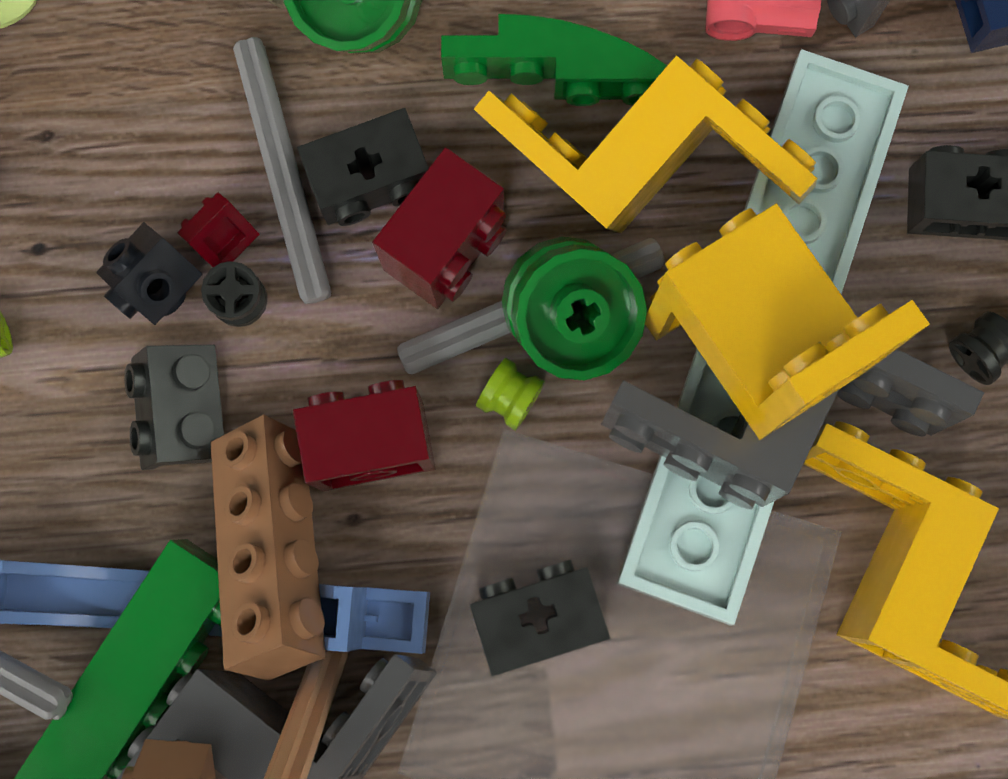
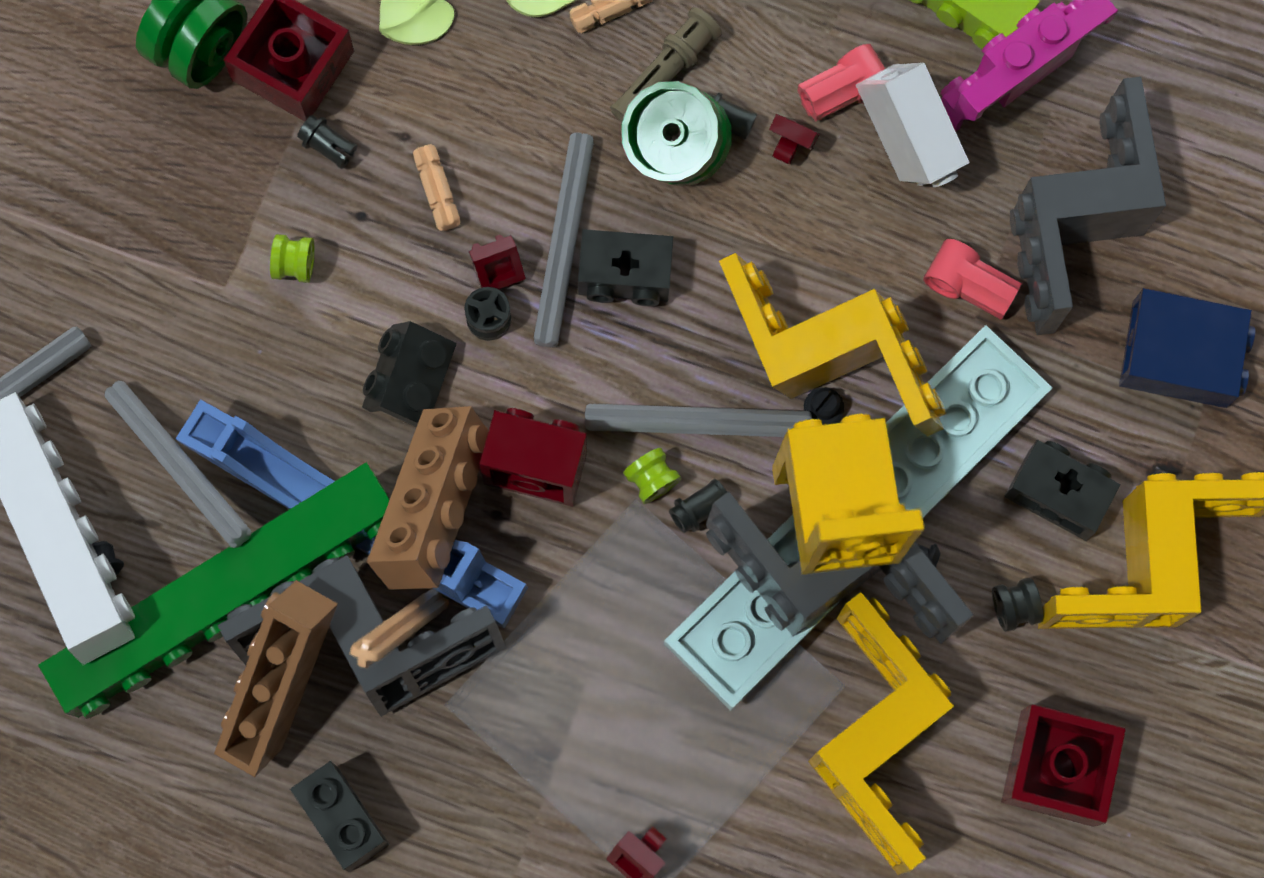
camera: 20 degrees right, 5 degrees down
(108, 176) = (436, 187): none -> light nougat axle
(147, 275) = (433, 271): black brick -> none
(442, 229) = (658, 336): dark red brick -> none
(531, 48) = (784, 234): green slope -> none
(575, 625) = (572, 651): pearl dark grey brick -> none
(578, 406) = (697, 507): none -> pearl dark grey pin
(581, 340) = (732, 459): green wheel -> none
(664, 223) = (825, 405): none -> black piece

